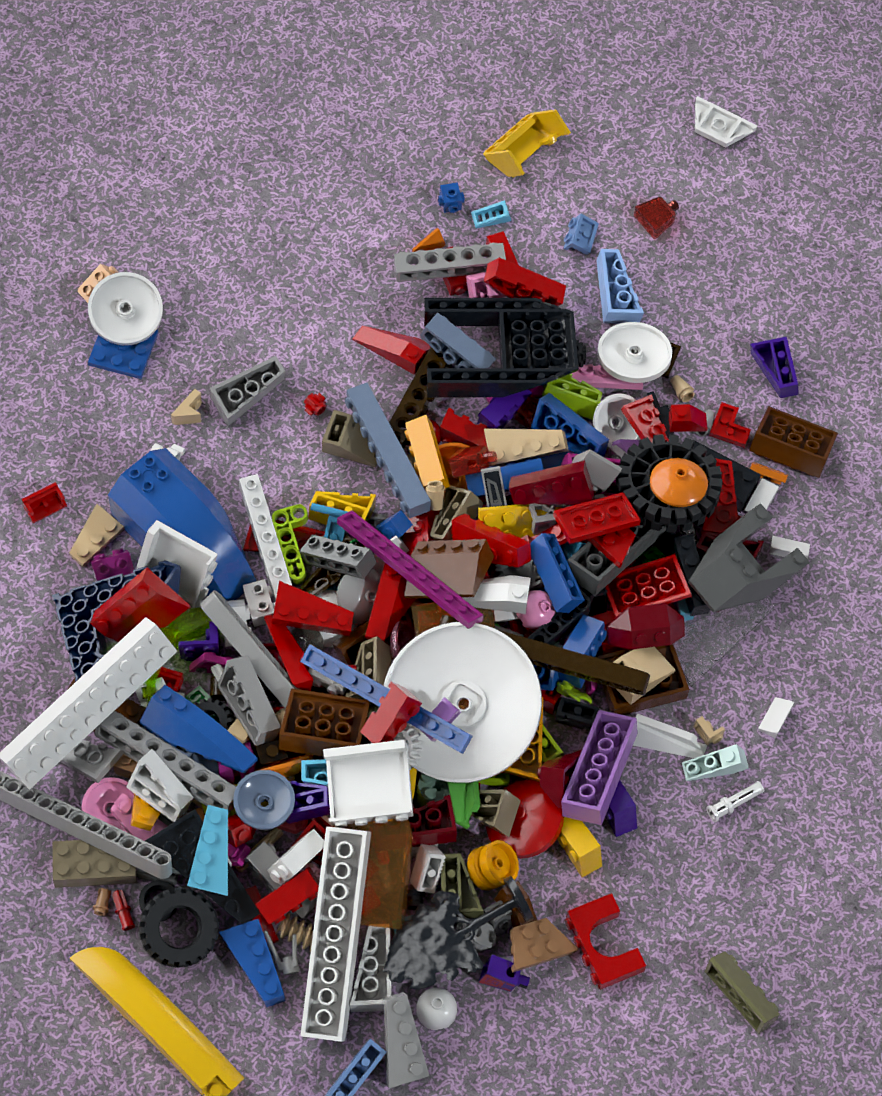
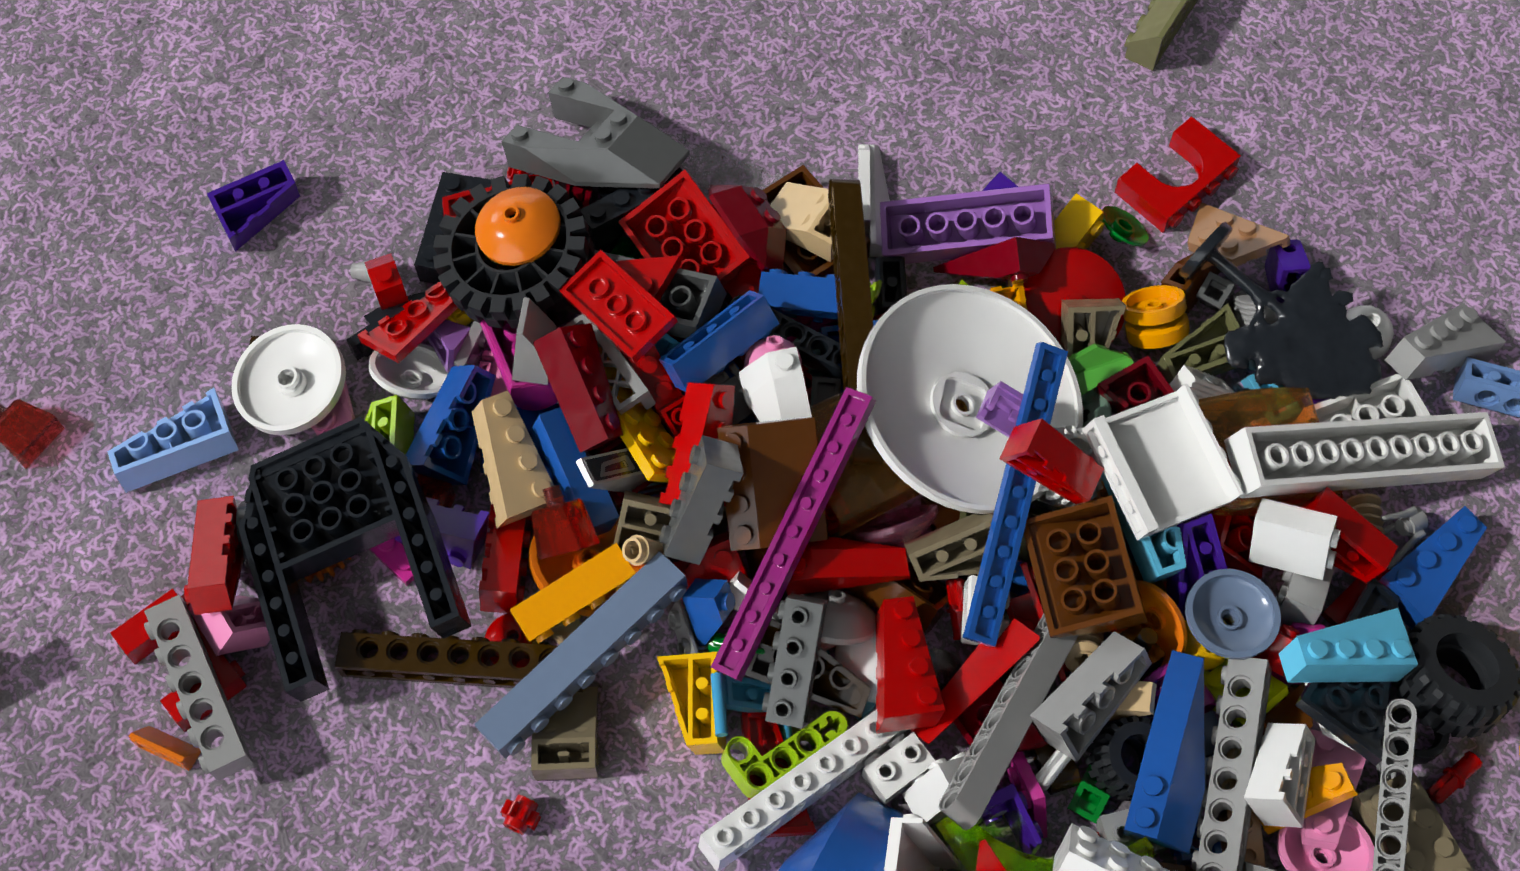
camera: 105 degrees left, 0 degrees up
(102, 902) = (1461, 811): medium nougat pin -> none
(399, 349) = (370, 728): red wedge -> none
(447, 521) = (701, 500): none -> dark grey wedge
(451, 198) = (59, 739): blue brick -> none
(455, 345) = (363, 614): sand blue wedge -> none
(505, 217) = (61, 652): medium azure slope -> none
(581, 234) = (82, 528): medium blue bracket -> none
(581, 892) = (1124, 226): none -> green dish
(682, 389) = (325, 313): tan cone -> none
(706, 731) = (843, 142): tan bracket -> none
(718, 763) = (883, 122): light aqua slope -> none
(726, 430) = (372, 244): red plate -> none
(728, 807) = (931, 97): white pin -> none
(763, 494) = (472, 166): white slope -> none
(775, 475) = (428, 172): orange plate -> none
(775, 716) = (786, 78): white slope -> none
(783, 546) = (534, 114): white slope -> none
(793, 442) = (369, 158): reddish brown slope -> none

